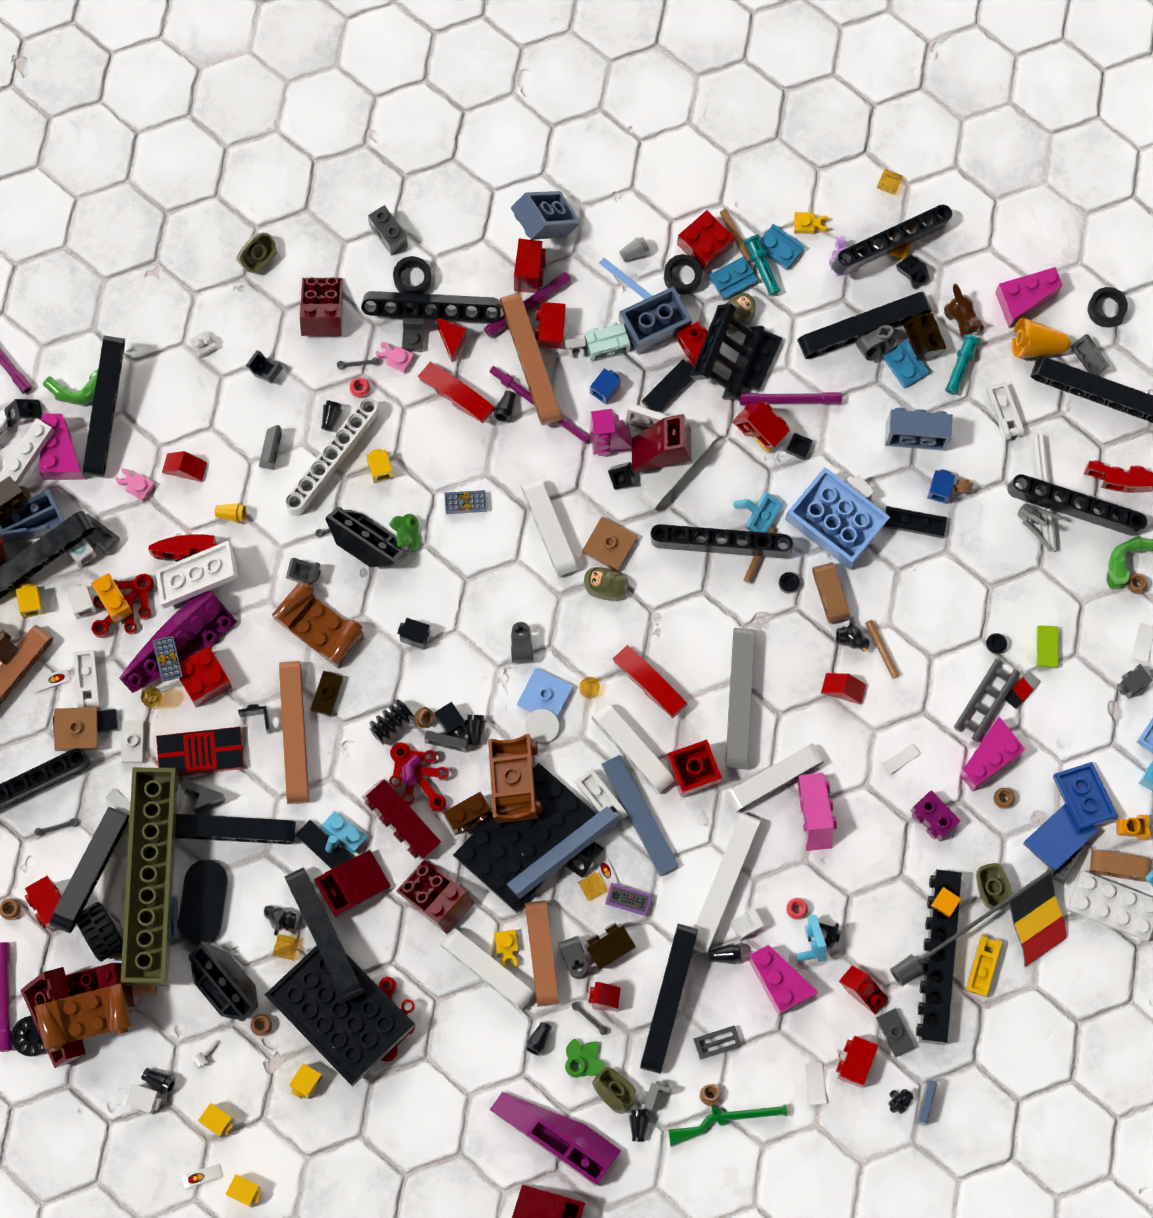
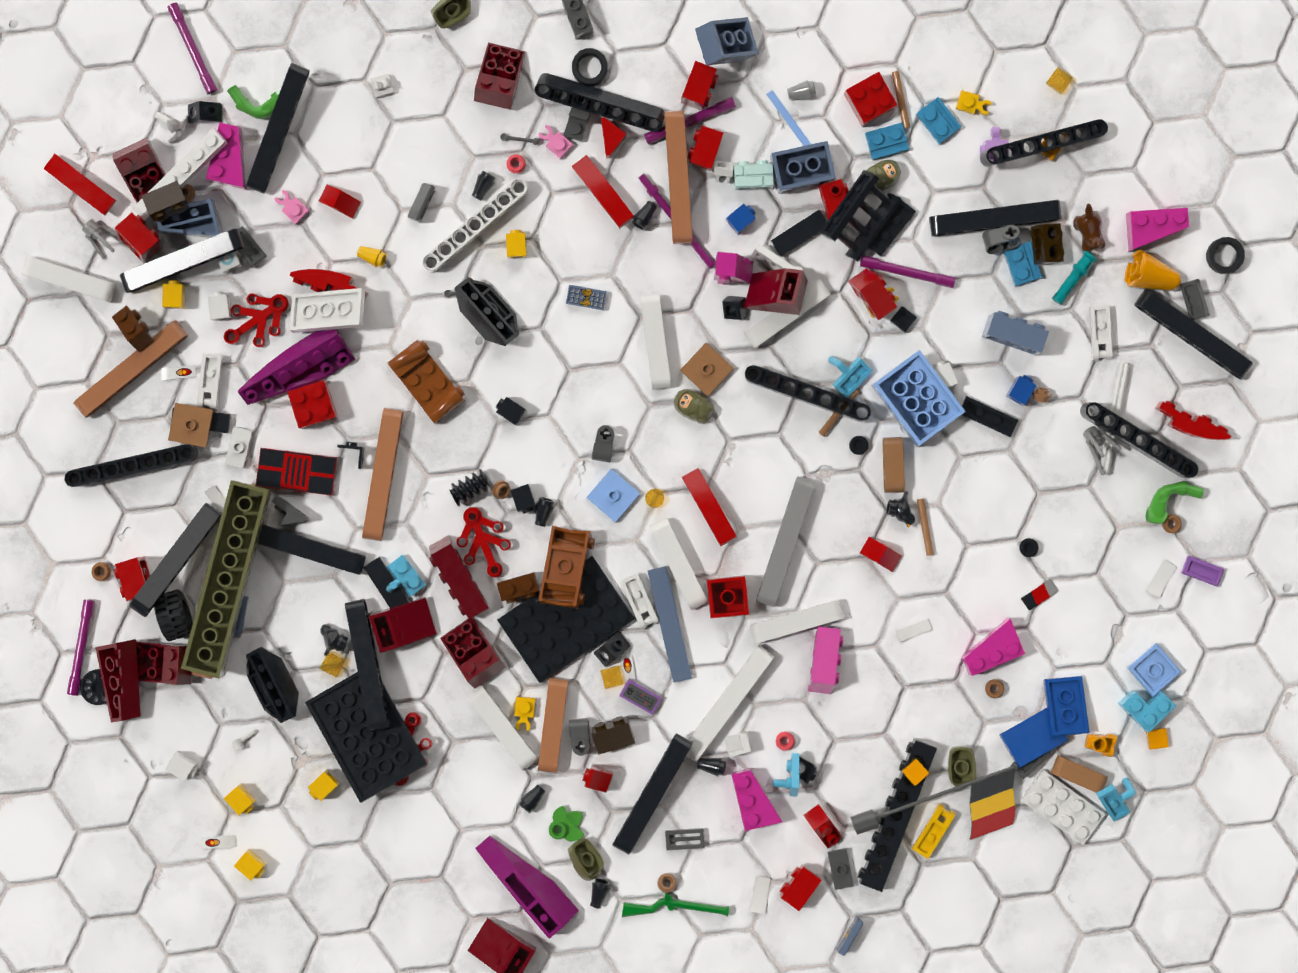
camera: 20 degrees right, 15 degrees up
(73, 822) = (172, 507): dark grey hinge -> none
(83, 1016) = (142, 689): dark orange piece -> none
(111, 598) = (247, 313): light orange brick -> none
(149, 694) = (257, 414): clear yellow cone -> none
(158, 1080) = (199, 754): black cone -> none
(167, 659) = (283, 385): tile -> none
(203, 902) = (269, 606): black tile -> none
(261, 1018) = (292, 731): medium nougat plate -> none
(263, 367) = (432, 124): black bracket -> none
(303, 571) = (424, 328): dark grey bracket -> none
(327, 693) = (420, 446): dark brown plate -> none
(407, 531) = (526, 314): bright green plate -> none
(408, 770) = (474, 536): magenta arm -> none
(446, 741) = (515, 517): dark grey tile -> none
(542, 725) = (603, 522): white sticker -> none
(563, 852) = (593, 644): sand blue tile -> none
(576, 1007) = (571, 777): dark grey hinge -> none
(650, 1097) = (614, 872): light grey bracket -> none
(690, 261) = (840, 112): black tyre -> none
(758, 256) = (915, 126): teal pin -> none
(900, 1100) = (827, 928): black plant -> none
(914, 270) = (1056, 175): black bracket -> none
(934, 816) = (929, 690): magenta brick -> none
(988, 712) = (993, 596): dark grey bar -> none
(1047, 646) = (1073, 561): lime tile -> none
(1134, 682) = (1141, 614): dark grey brick -> none

